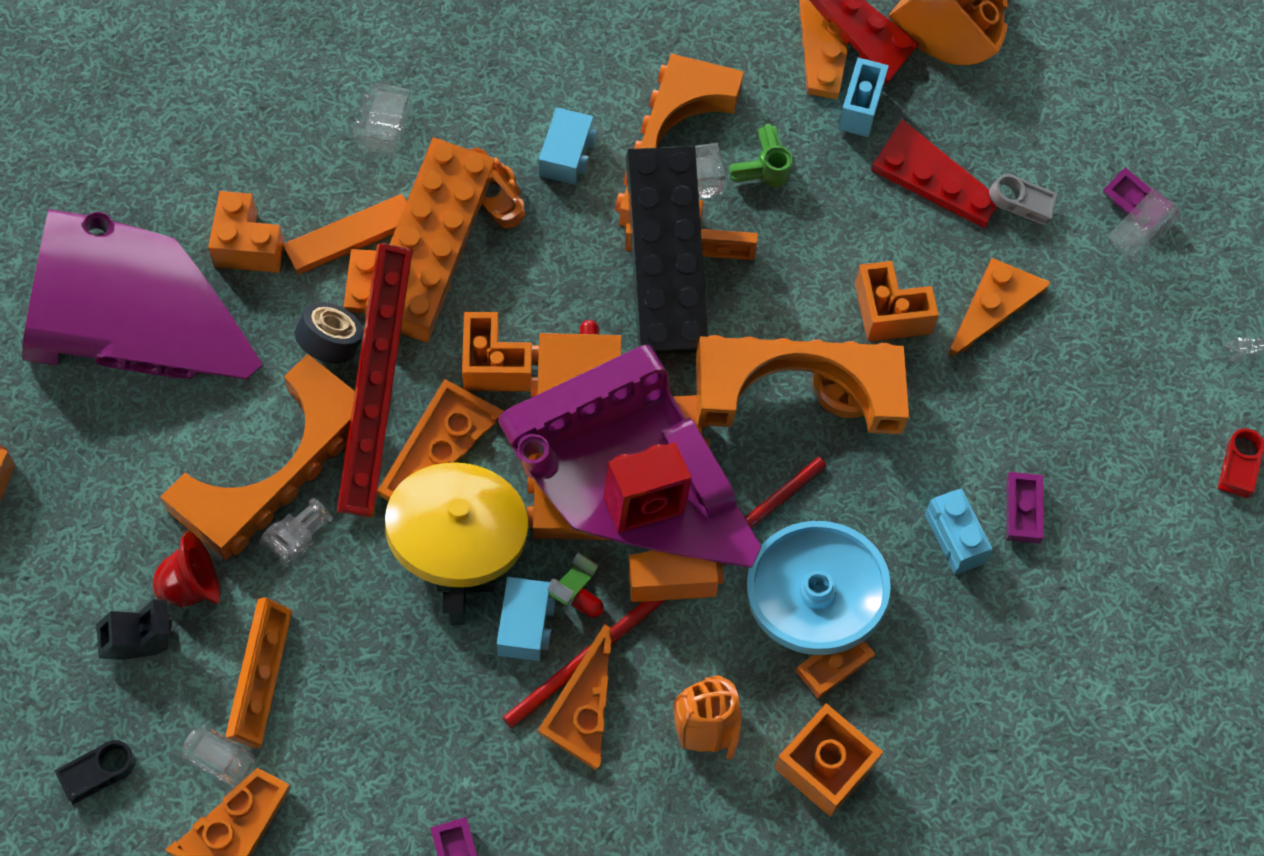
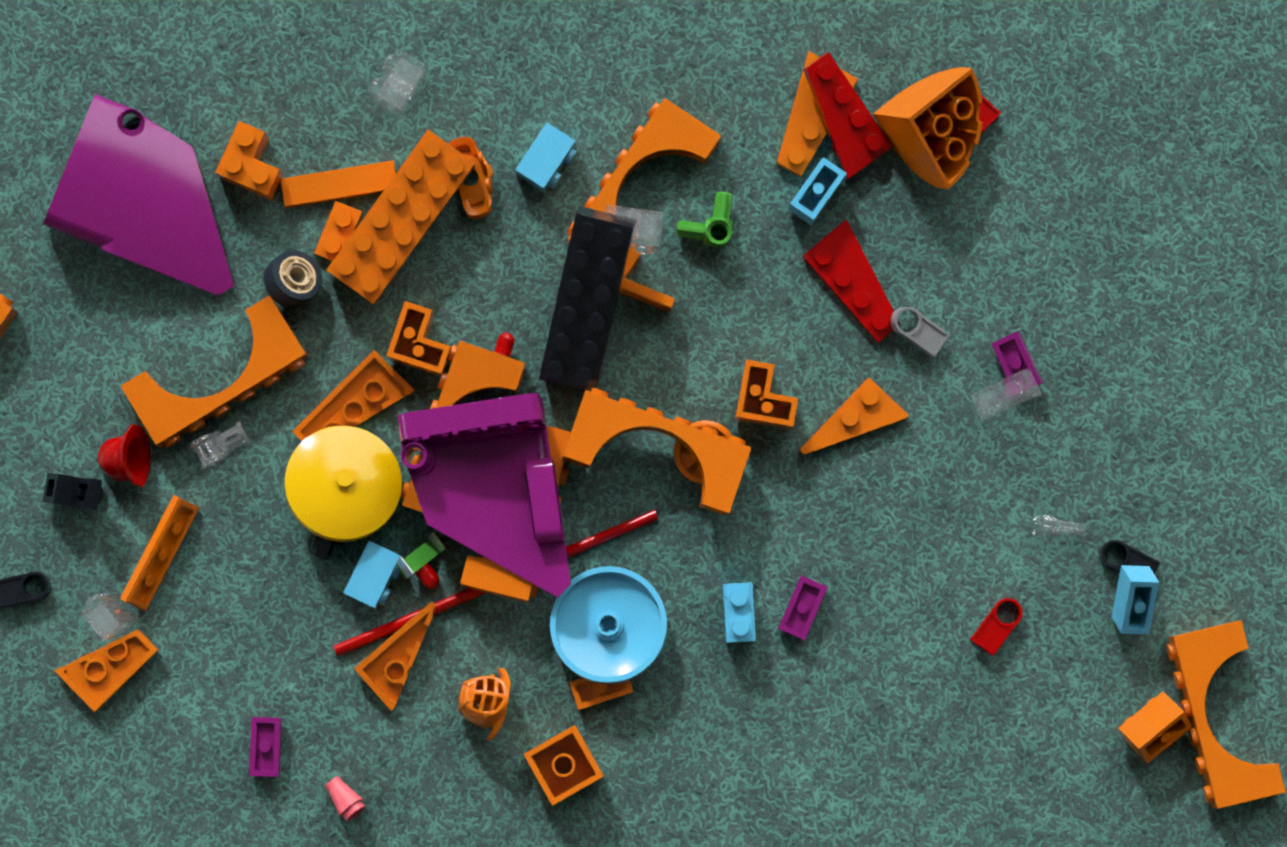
camera: 20 degrees right, 20 degrees up
(374, 381) = (315, 337): red tile -> none
(646, 486) = (492, 513): red brick -> none

